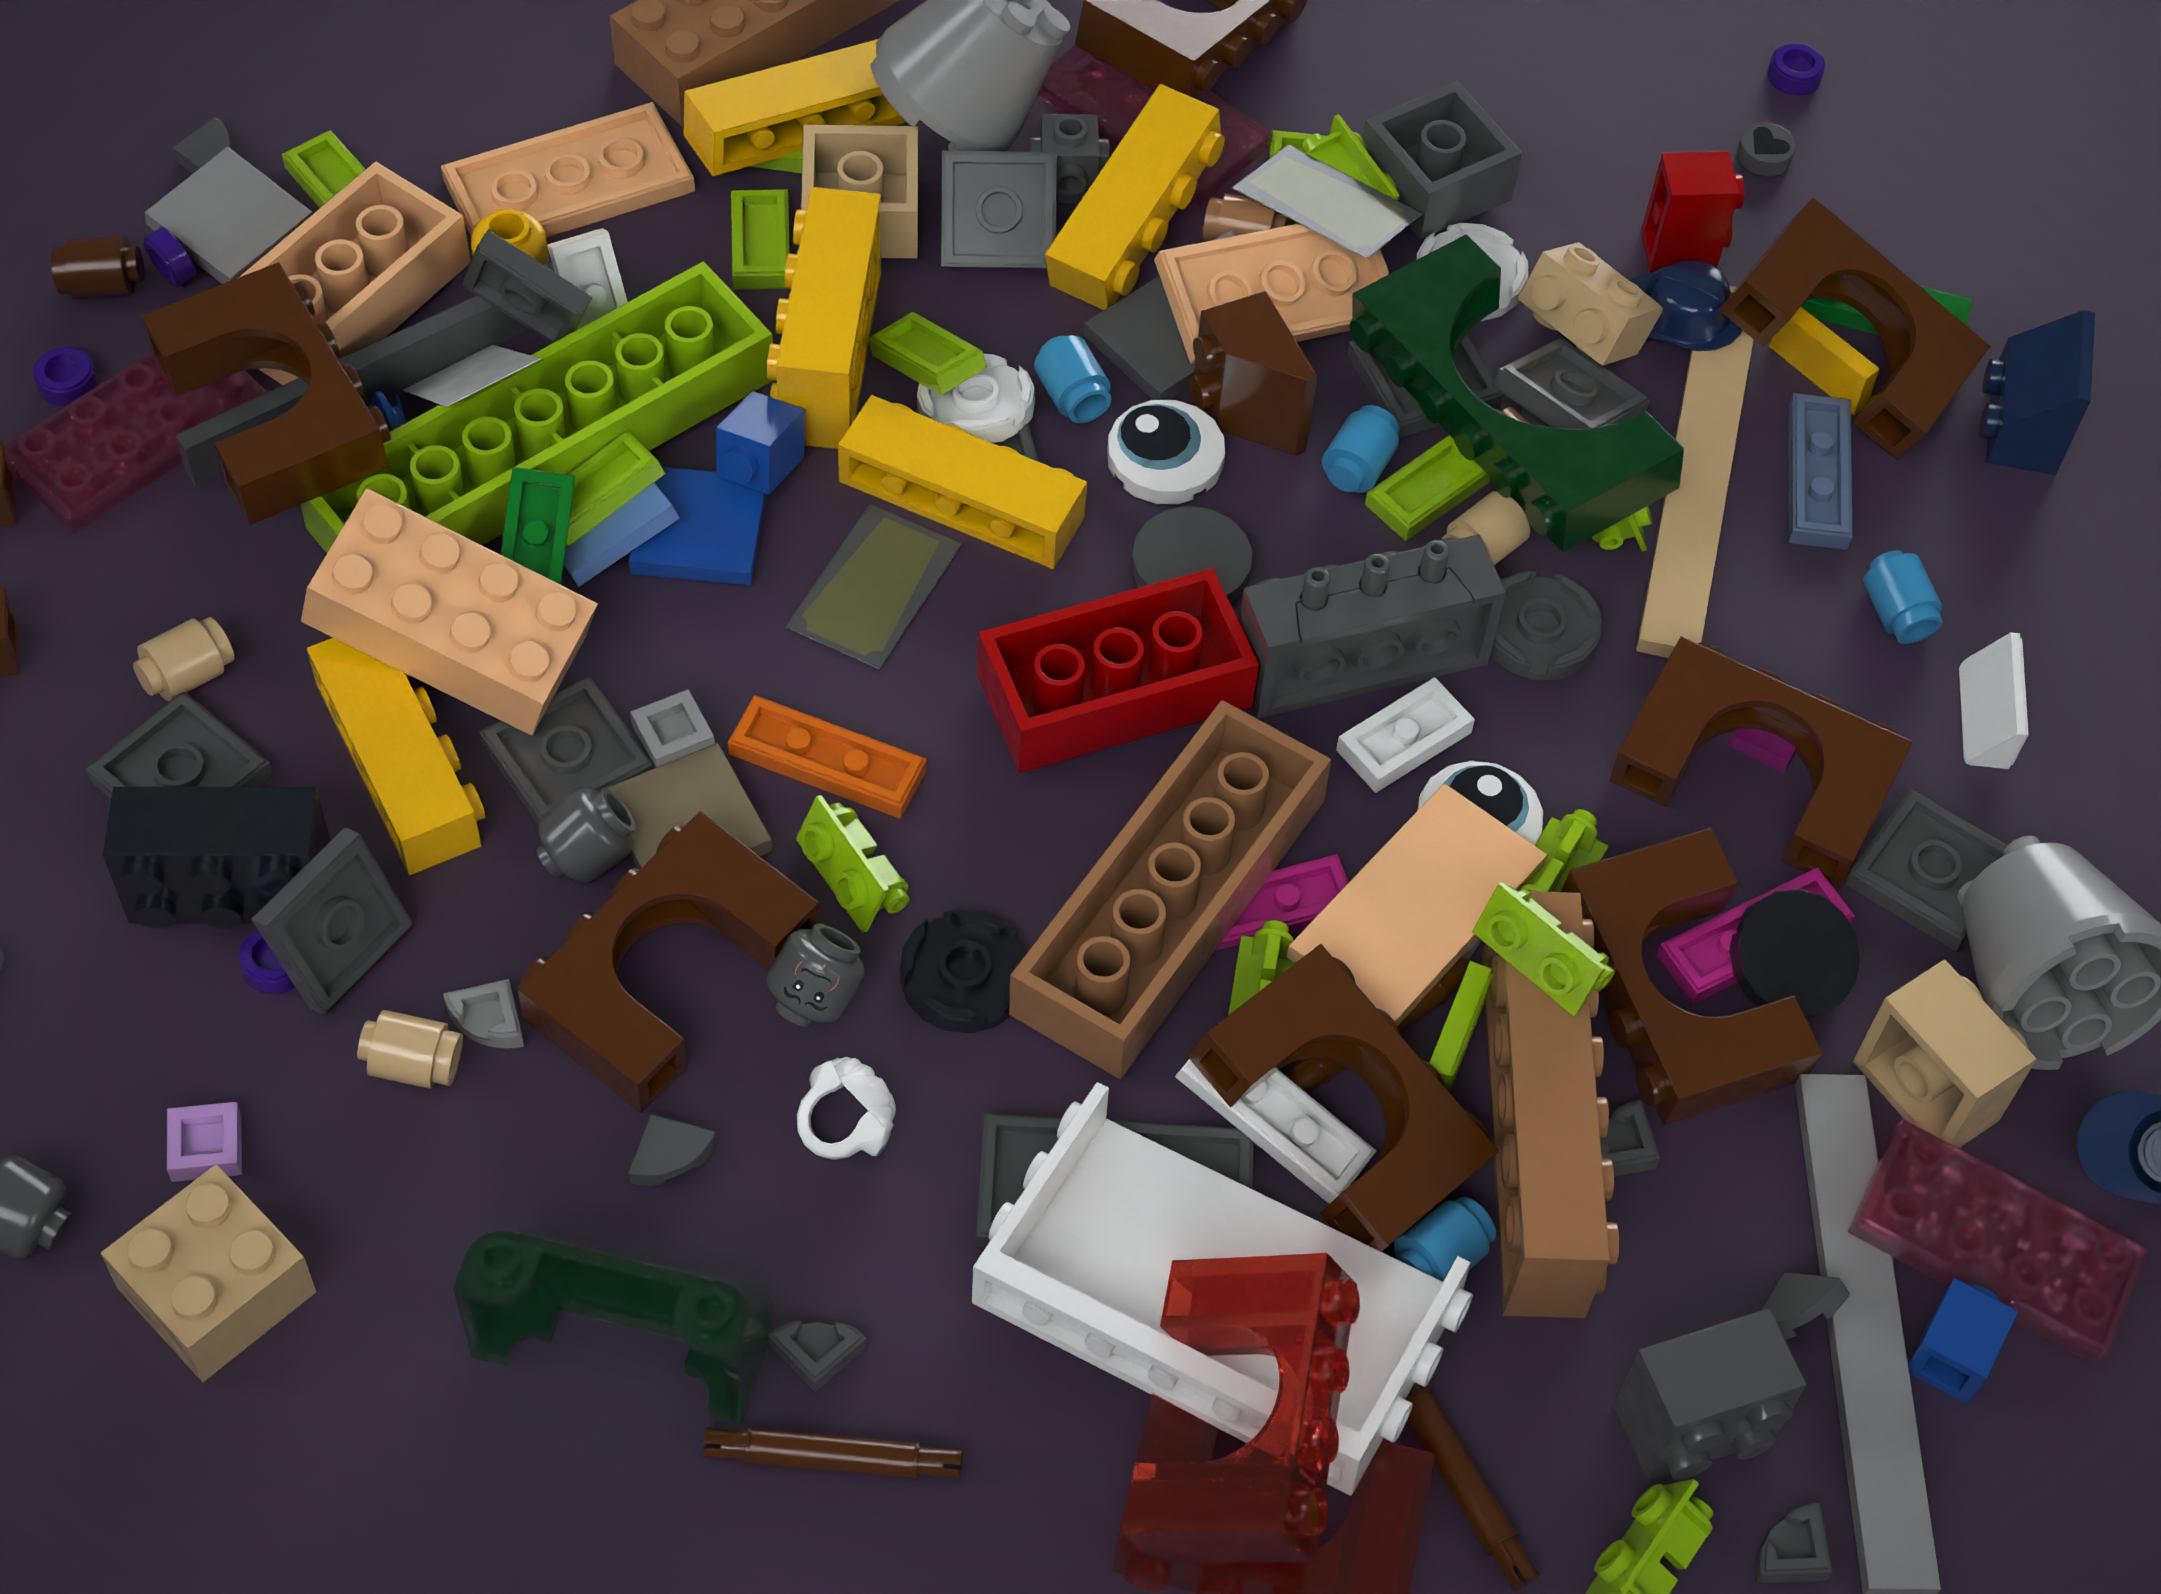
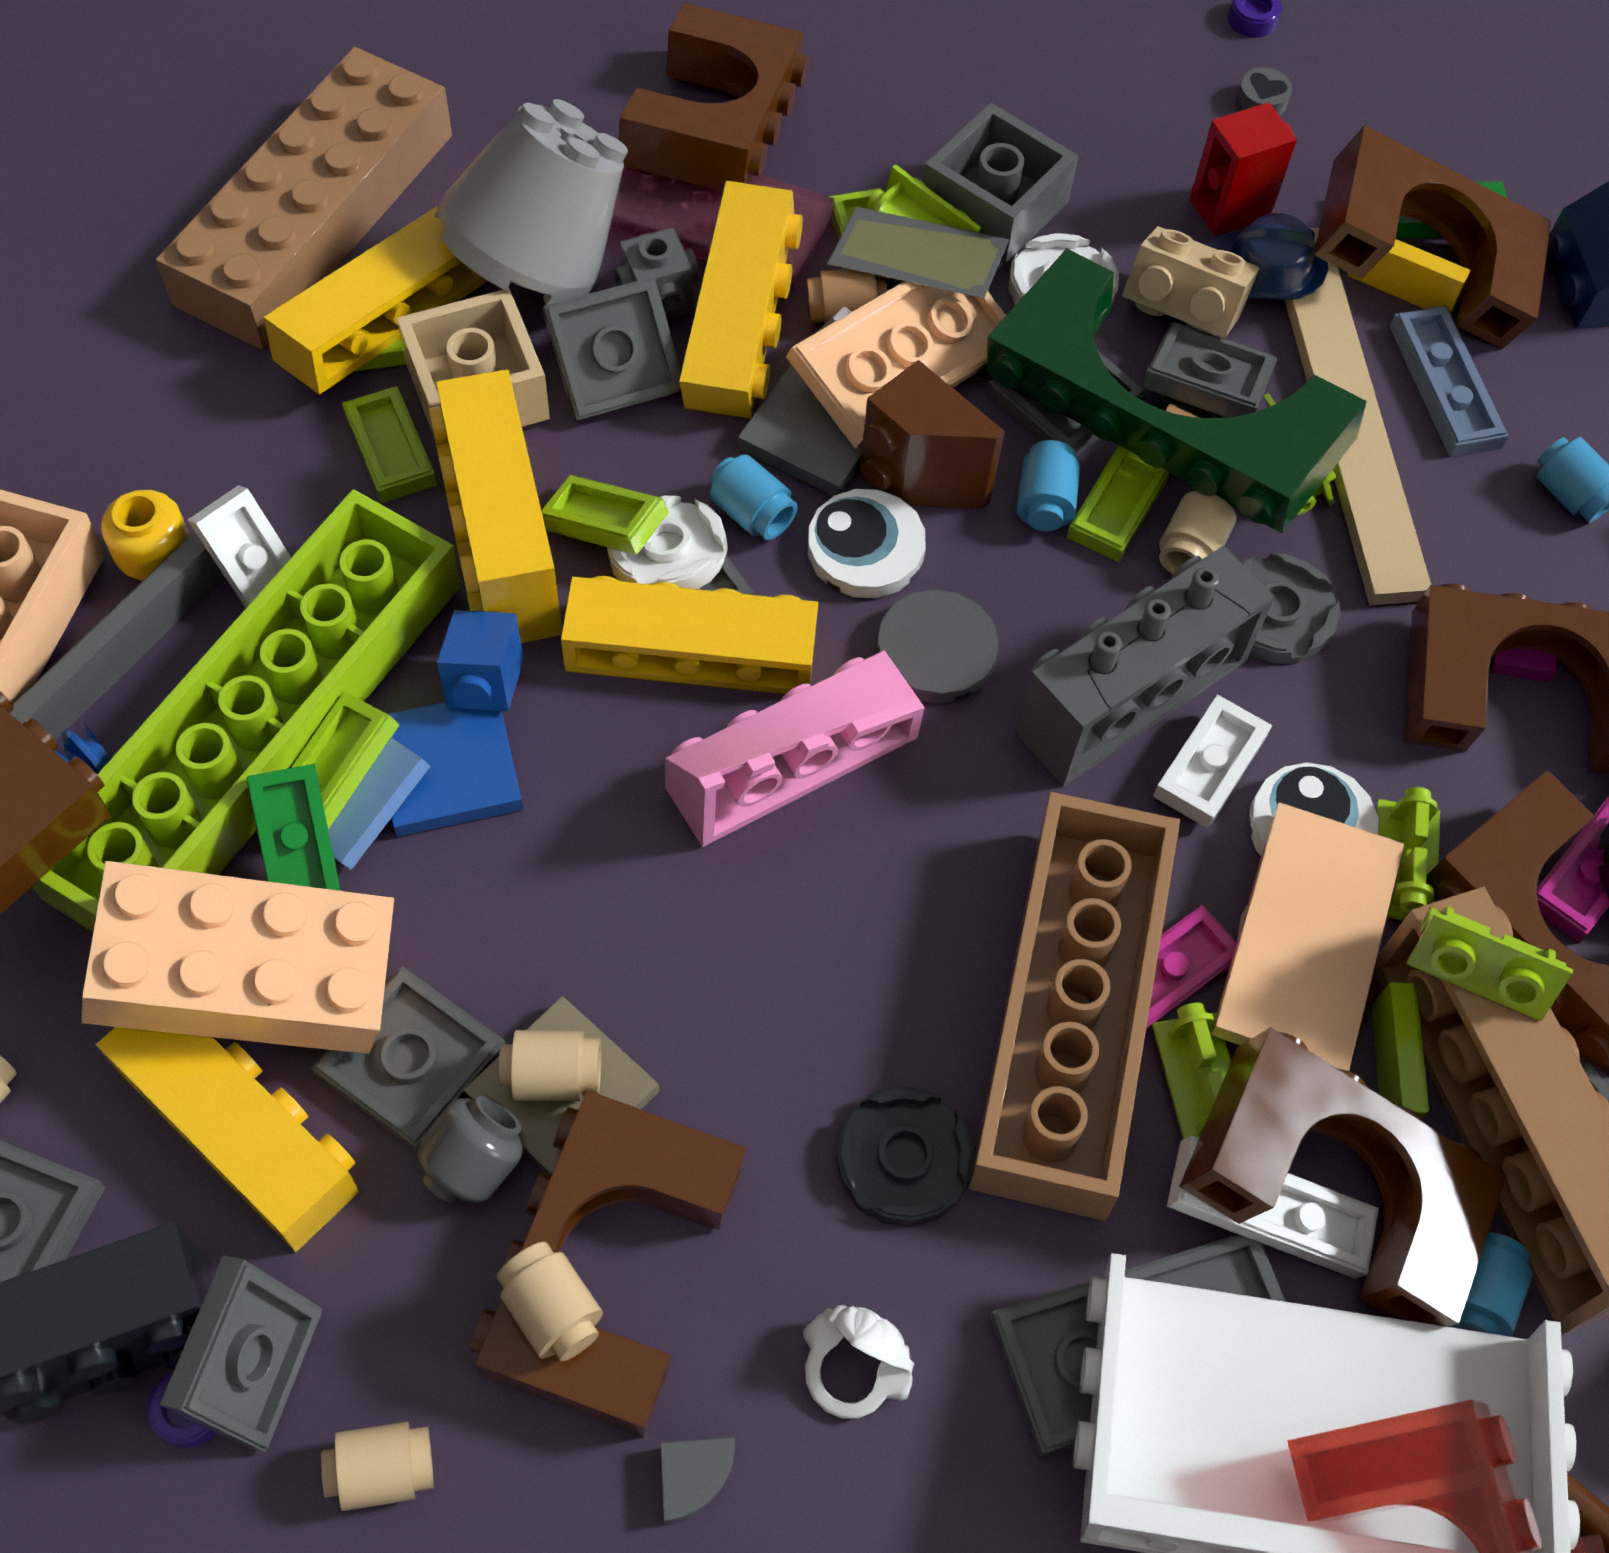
camera: 20 degrees left, 5 degrees up
(470, 375) = (157, 682): white sticker -> none
(486, 1014) = (441, 1387): light grey tile -> none
(525, 289) = (186, 576): dark grey tile -> none
(574, 173) = (174, 431): light nougat tile -> none
(596, 954) = (549, 1302): none -> tan brick
(671, 728) = (510, 996): light grey plate -> none
(680, 786) = (550, 1065): none -> tan brick
(815, 975) = (770, 1225): dark grey head -> none
(827, 756) = (674, 970): orange tile -> none
(838, 849) = (724, 1066): lime hinge -> none
(874, 586) = (625, 780): olive sticker -> none
(944, 605) = (792, 746): none -> bright pink wedge
(1115, 669) = (924, 788): red brick -> none

